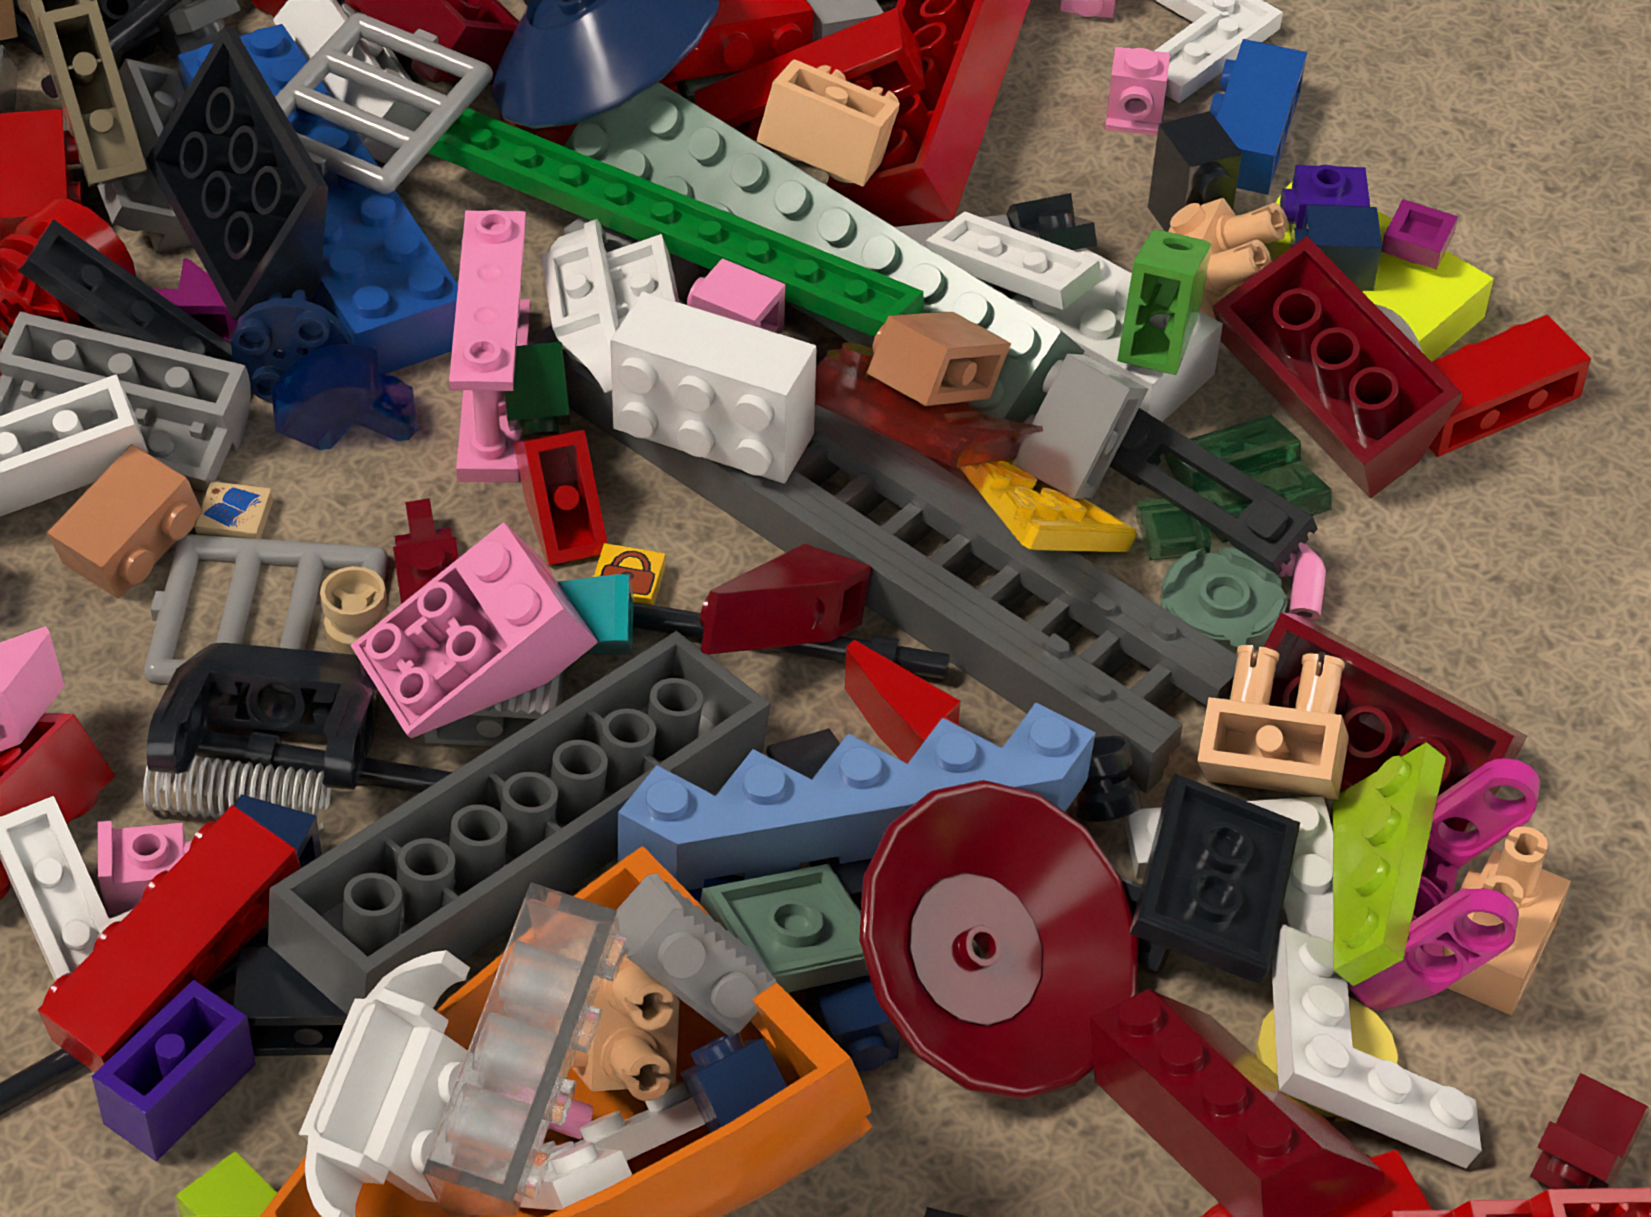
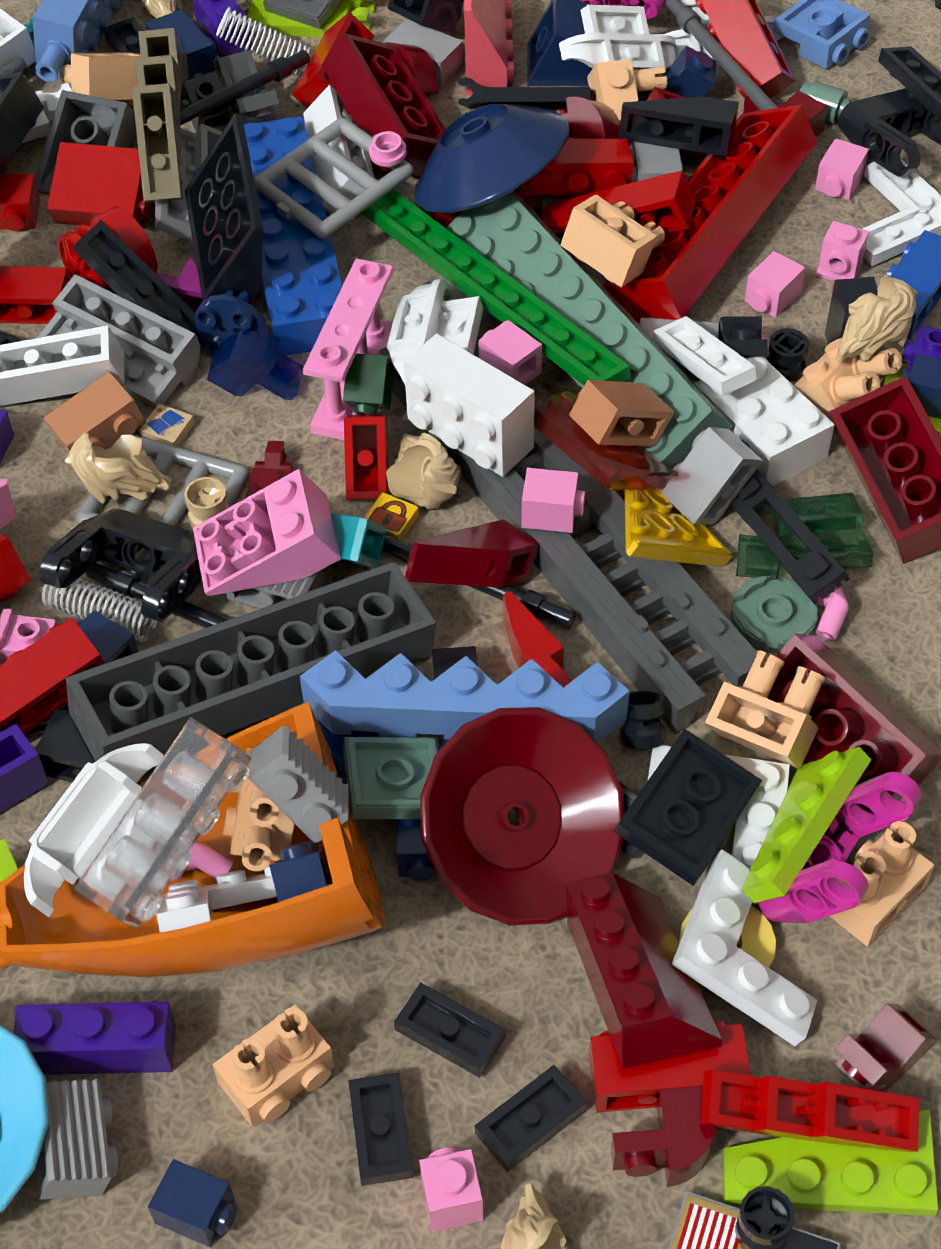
camera: 20 degrees right, 5 degrees up
(193, 585) = (116, 470): none -> tan hair
(450, 47) = (387, 149): none -> bright pink plate
(657, 500) = (423, 472): none -> tan hair
(875, 499) = (551, 500): none -> bright pink brick
(1058, 149) = (774, 284): none -> bright pink brick
(1117, 234) = (788, 352): none -> black wheel
(1164, 280) = (793, 387): bright green torso -> none
(1245, 166) = (878, 319): none -> tan hair

